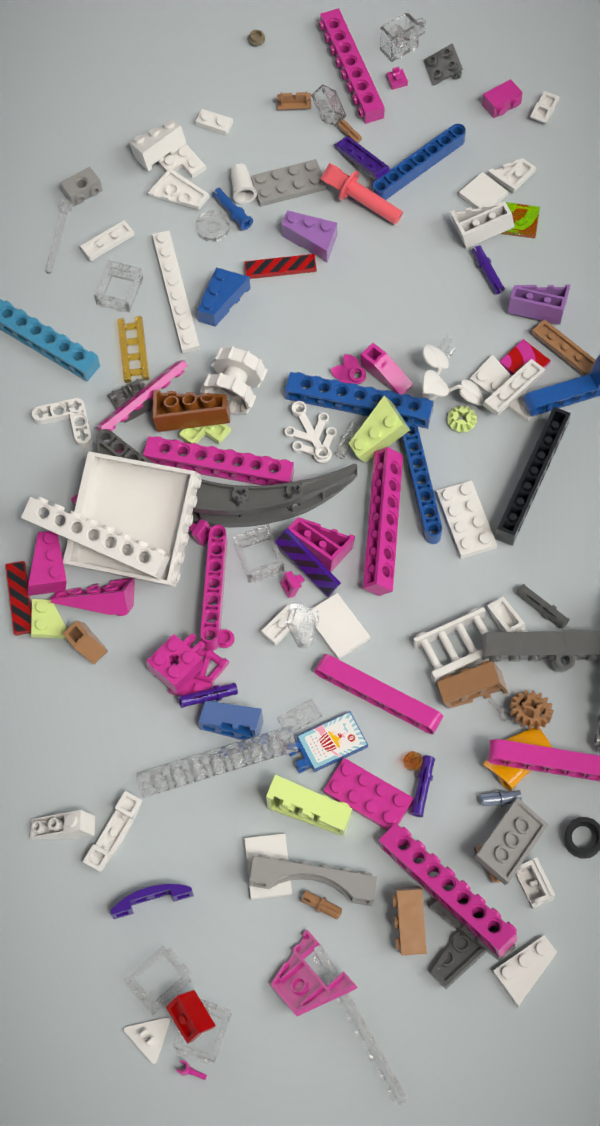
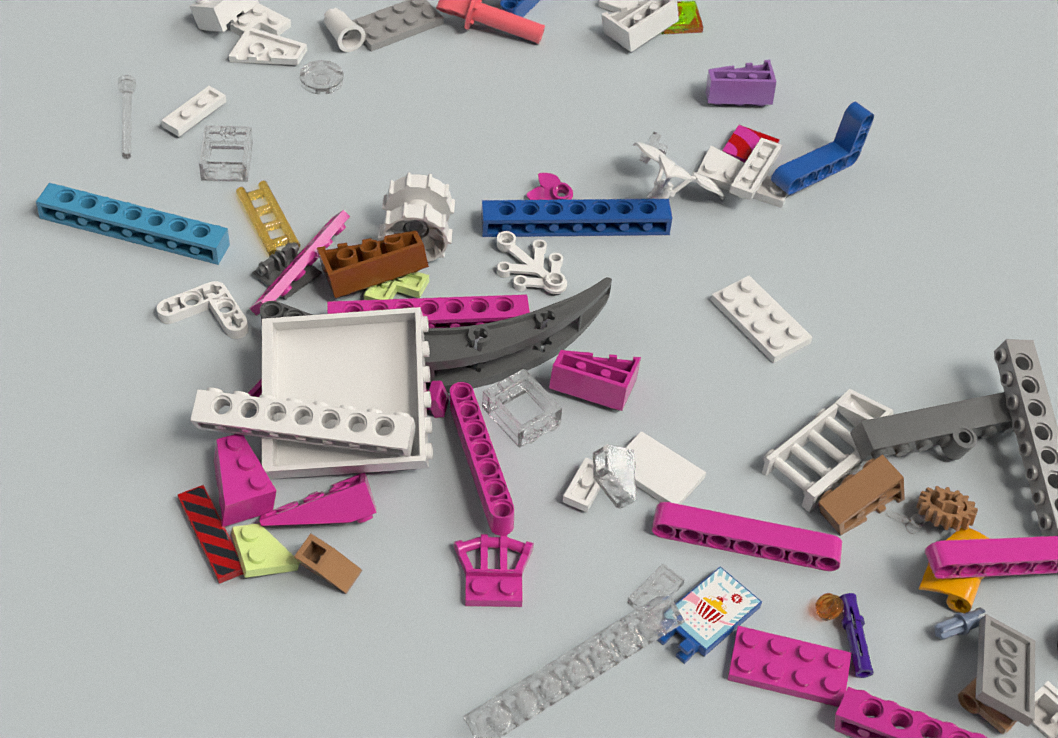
camera: 25 degrees left, 15 degrees down
(81, 186) = (142, 60): light grey brick -> none
(176, 292) = (301, 151): white plate -> none
(179, 652) = (468, 556): dark pink hinge -> none
(187, 700) = (533, 586): dark purple pin -> none
(221, 294) = (362, 139): blue wedge -> none
(226, 638) = (521, 518): dark pink plate -> none
(231, 720) = (570, 613): wedge -> none
(236, 213) = (347, 59): blue pin -> none
(280, 266) = (420, 103): red tile -> none
(291, 583) = (578, 433): dark pink tile -> none
(307, 562) = (592, 401): dark purple tile -> none
(308, 806) = (719, 697): yellowish green wedge -> none
(310, 232) = (444, 62): medium lavender wedge -> none
(343, 446) = (577, 272): clear pin -> none
(378, 430) = (620, 239): yellowish green wedge -> none
(383, 522) = (666, 340): dark pink brick -> none
(385, 369) = (591, 178): dark pink slope -> none
(422, 490) = (692, 290): blue beam -> none
(461, 425) = (707, 222): yellowish green gear -> none
(485, 264) = (660, 61): dark purple pin -> none
(532, 476) = (821, 256): black brick -> none
(543, 606) = (927, 400): dark grey pin -> none
(564, 347) = (789, 125): medium nougat plate -> none

